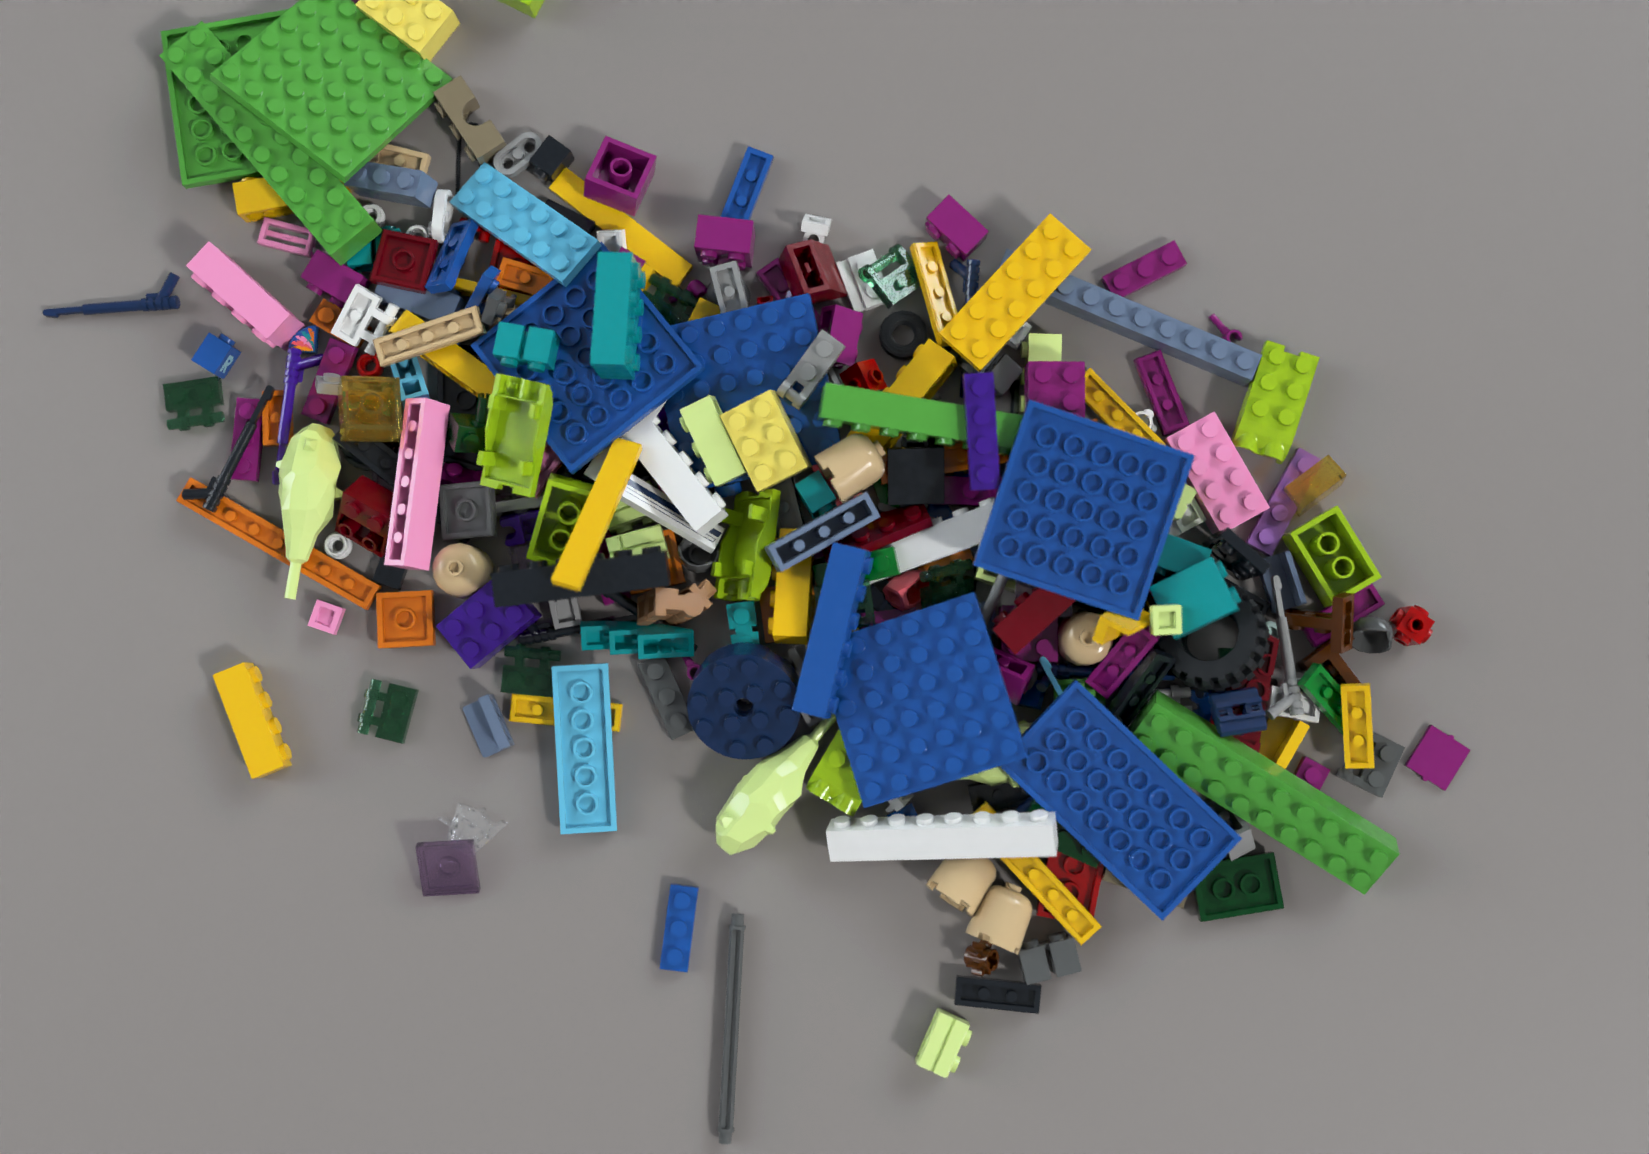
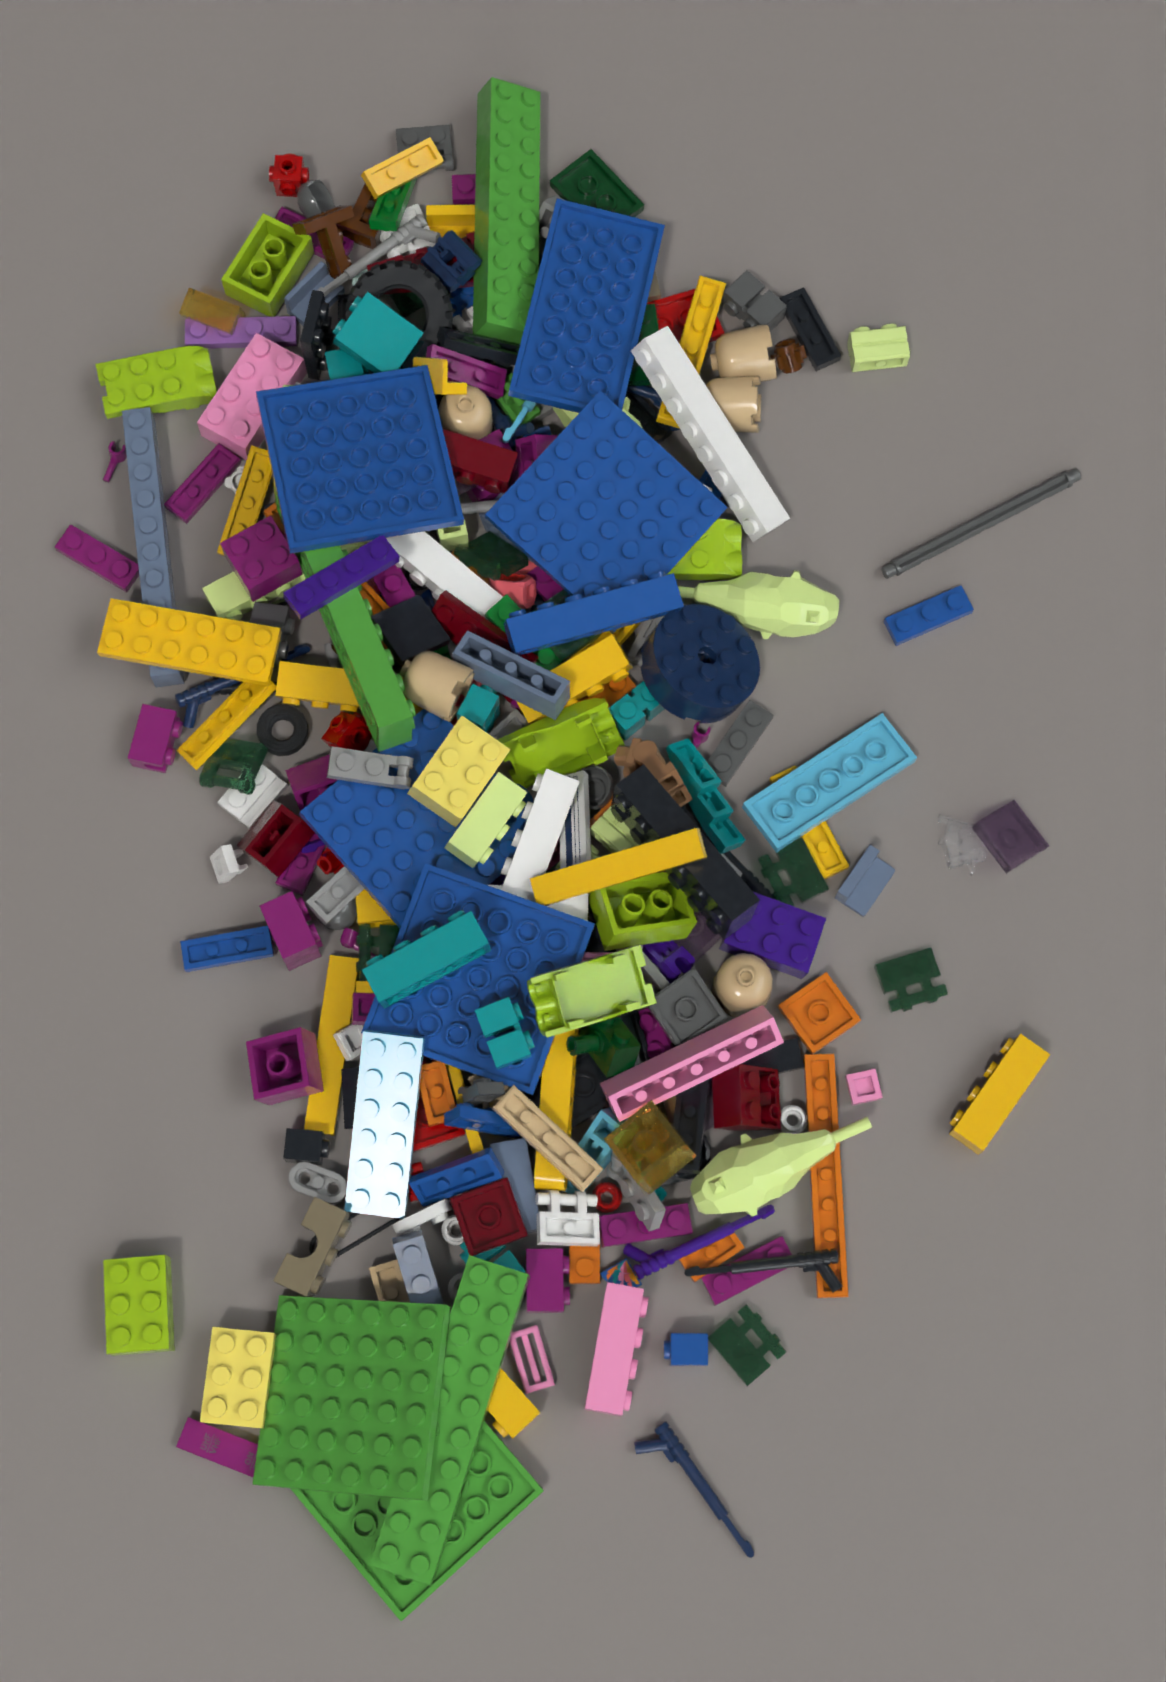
camera: 125 degrees left, 10 degrees down
(1165, 619) = (412, 344): yellowish green plate -> none
(1437, 757) = (387, 102): magenta piece -> none

